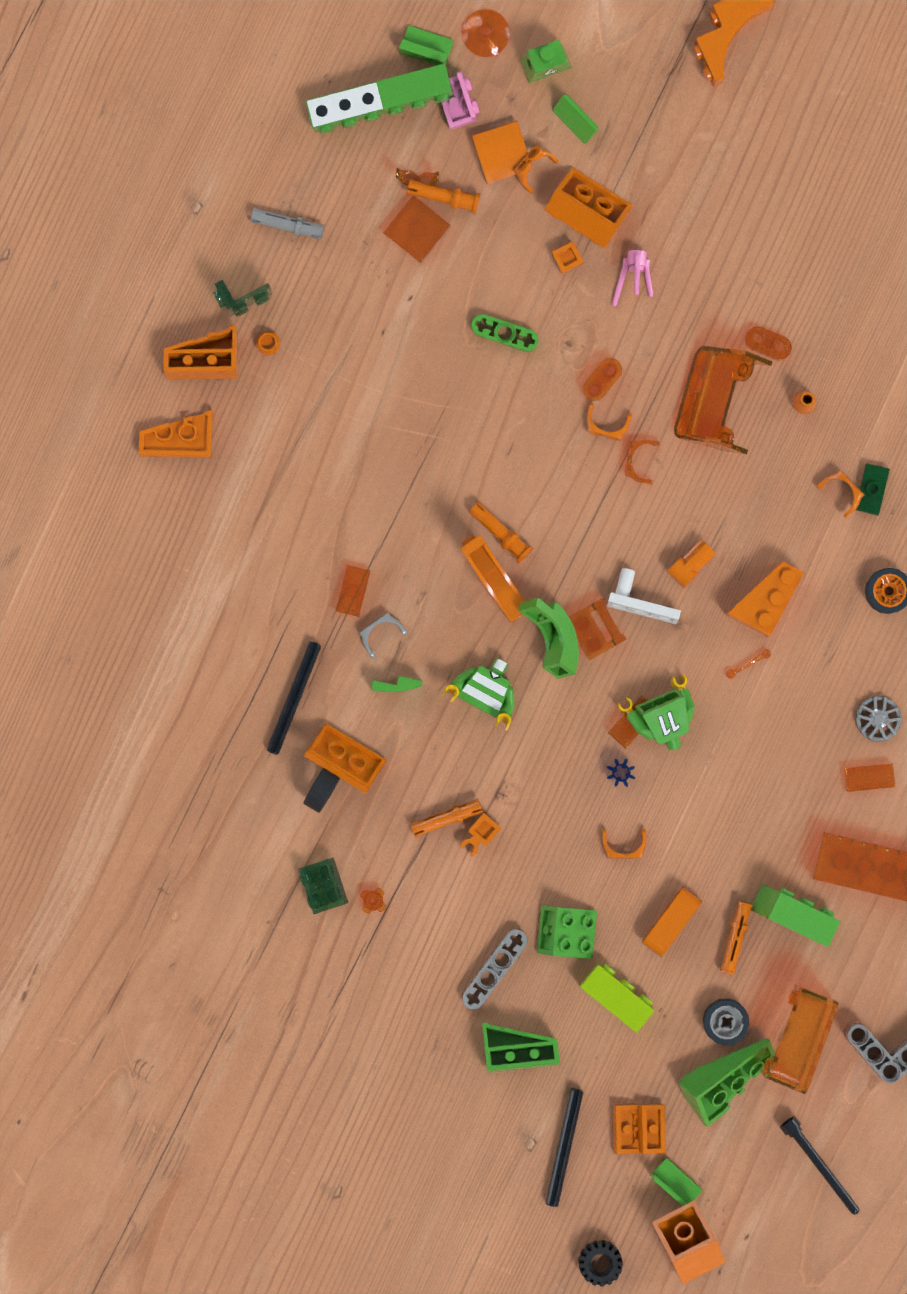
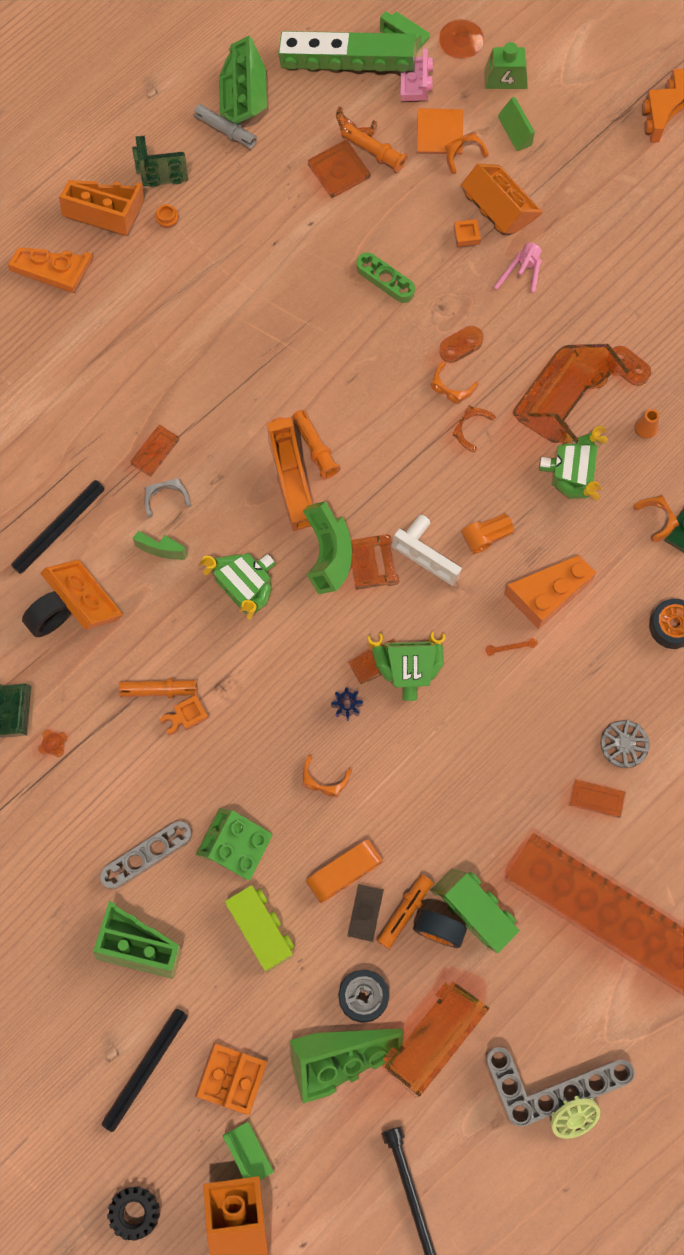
camera: 20 degrees right, 15 degrees down
(289, 175) = (242, 82): none -> bright green wedge
(702, 950) = (365, 913): none -> clear smoke plate
(751, 471) = (575, 466): none -> torso
(772, 943) = (440, 928): none -> black wheel

